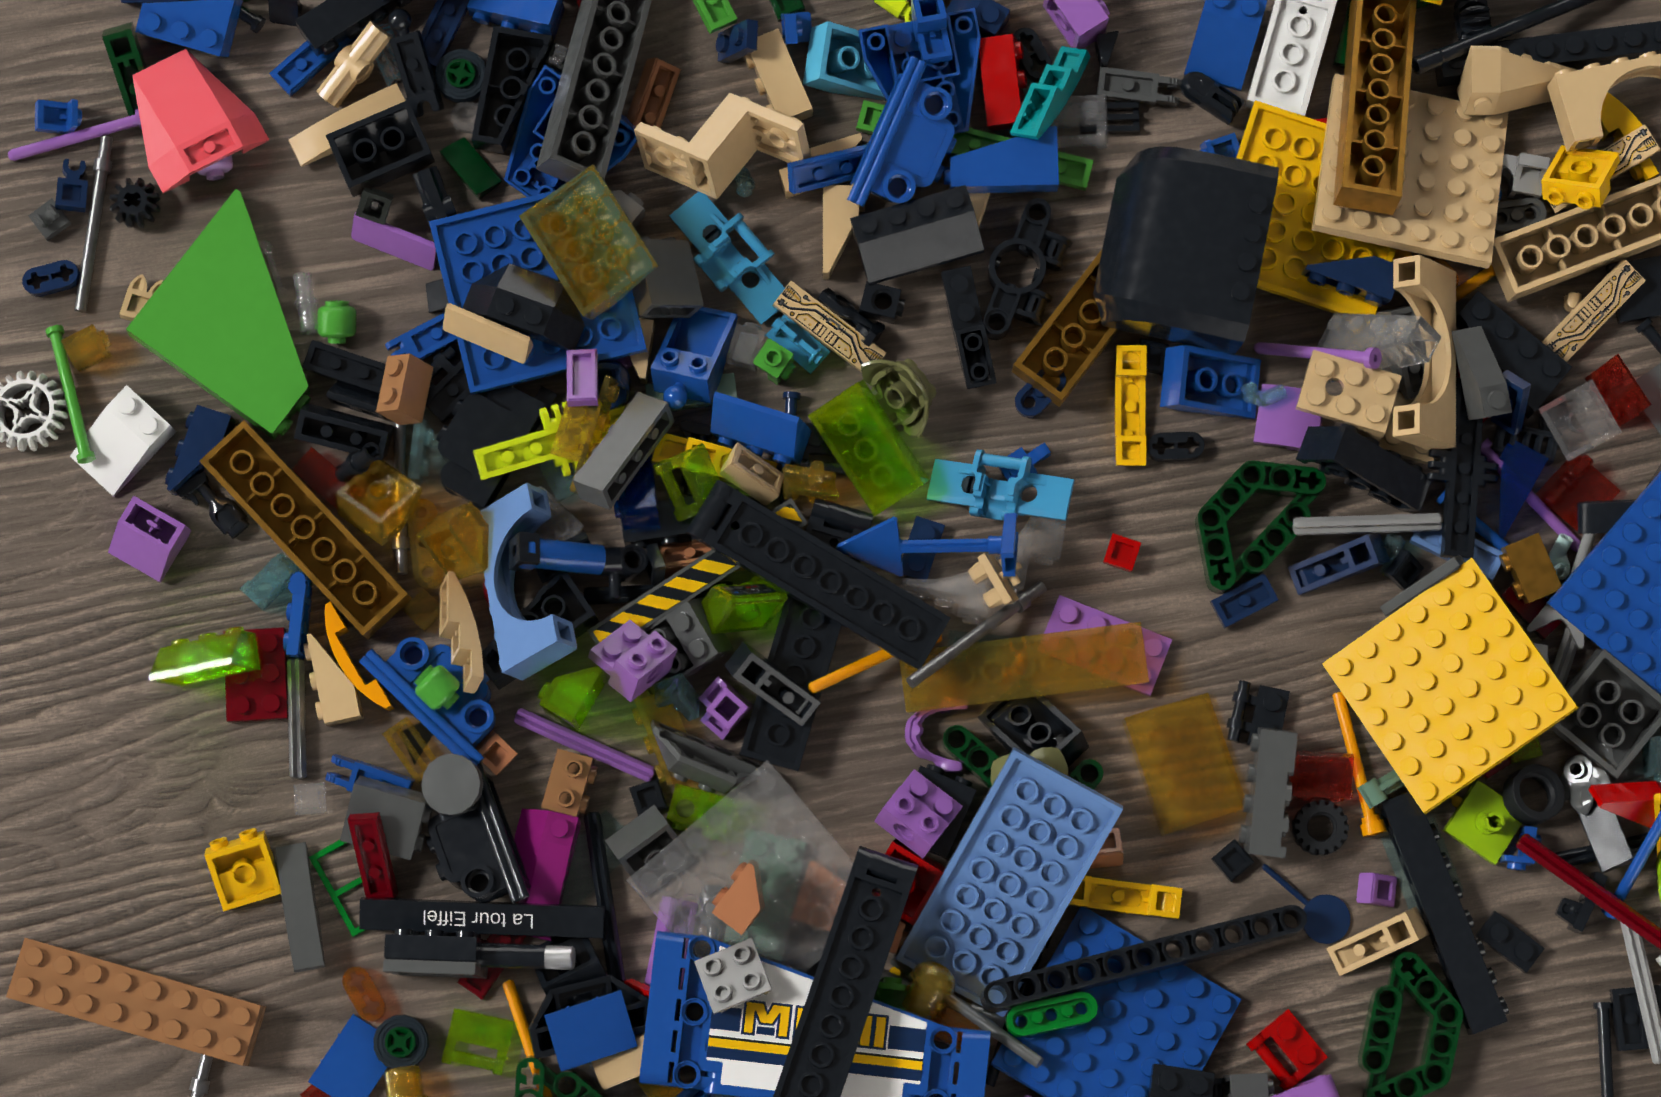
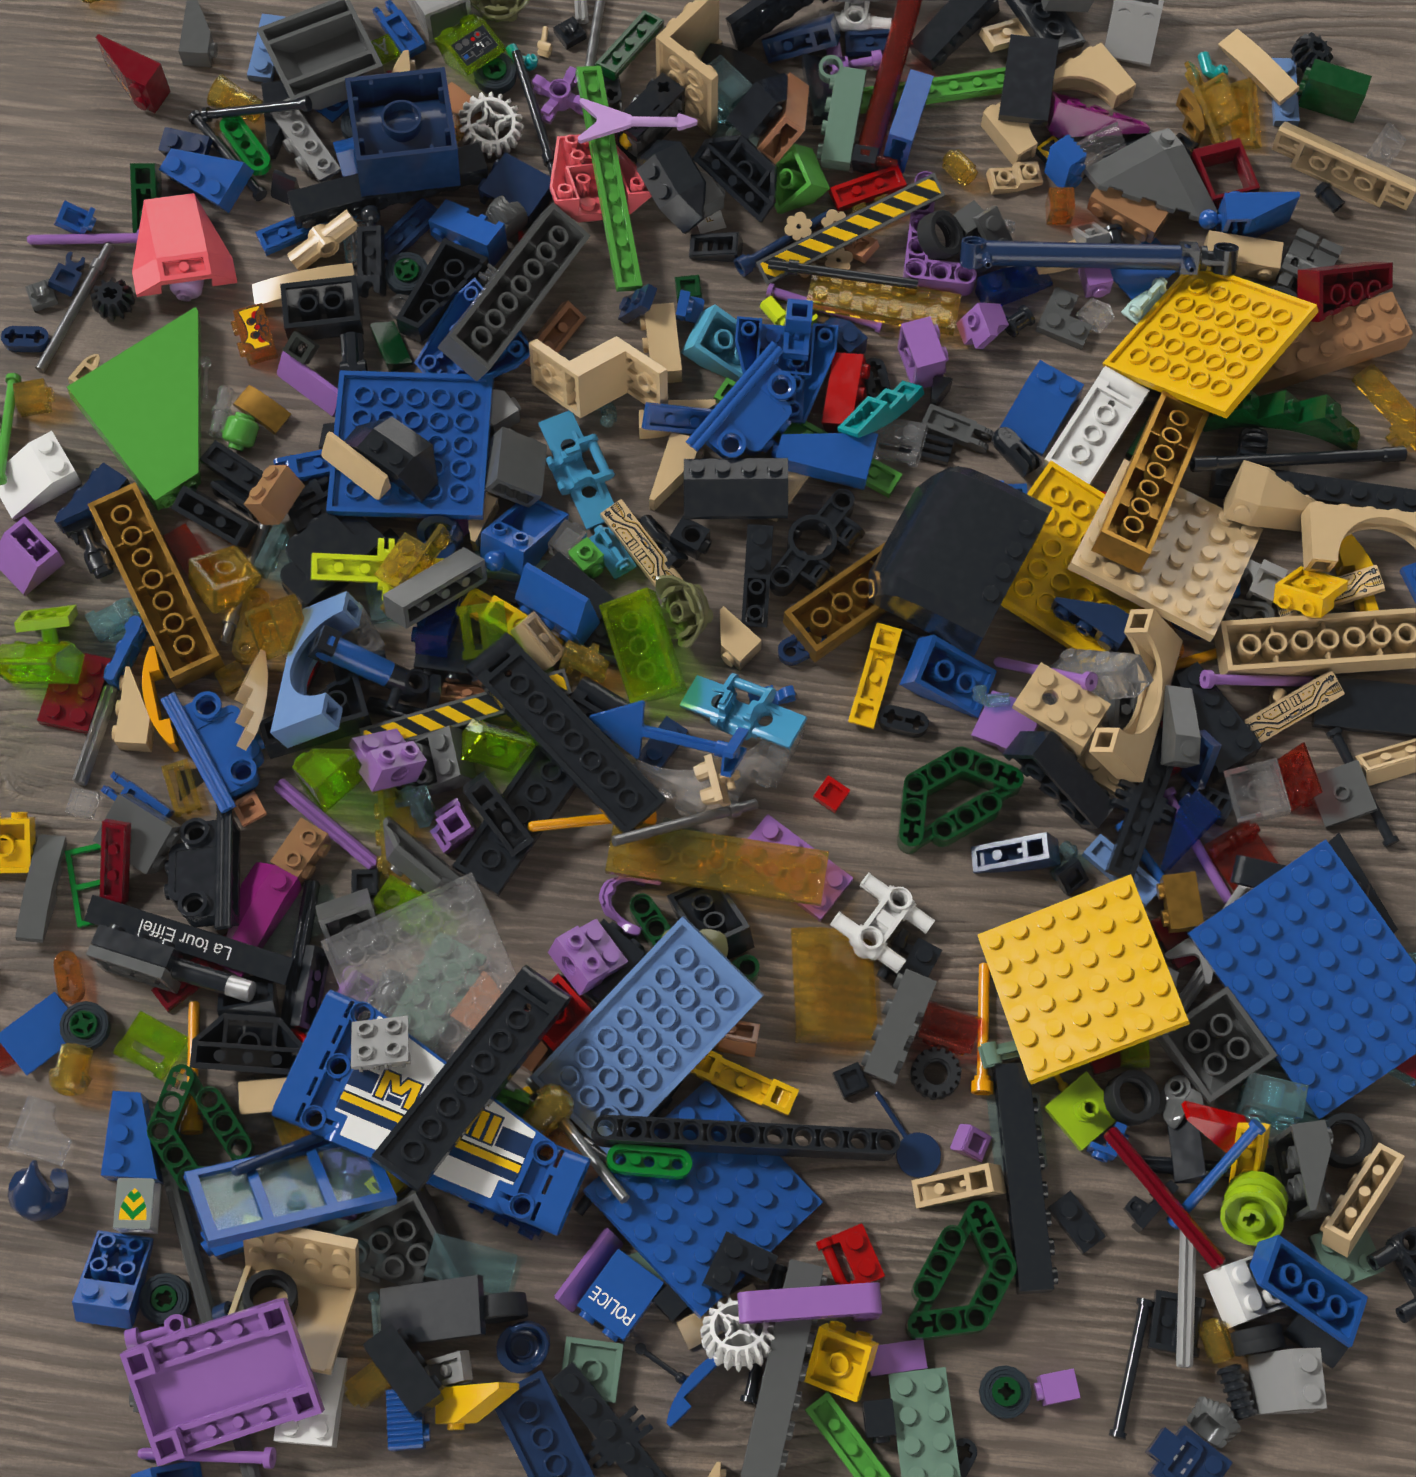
camera: 15 degrees right, 10 degrees down
(199, 607) = (47, 621): none -> lime tile
(312, 198) = (254, 333): none -> clear orange brick
(351, 286) = (263, 408): none -> pearl gold slope
(358, 462) = (216, 539): black pin -> none
(437, 687) = (216, 736): bright green head -> none
(452, 784) = (200, 818): dark grey tile -> none
(582, 377) = (420, 521): medium lavender tile -> none
(589, 242) = (460, 414): clear yellow slope -> none
(590, 1030) = (245, 1058): blue window -> none
(629, 932) = (310, 987): none -> black plate
(743, 900) = (411, 979): nougat slope -> none
(774, 394) = (569, 574): none -> black tile
(967, 408) = (737, 641): none -> tan slope
(1219, 681) = (882, 922): none -> white piece
(1244, 601) = (925, 863): dark blue plate -> none
(1367, 524) = (1051, 826): light grey axle -> none
(1422, 585) = (1083, 887): dark grey tile -> none
(1496, 310) = (1209, 679): none -> medium lavender bar
(1559, 557) = (1209, 901): light aqua arm -> none

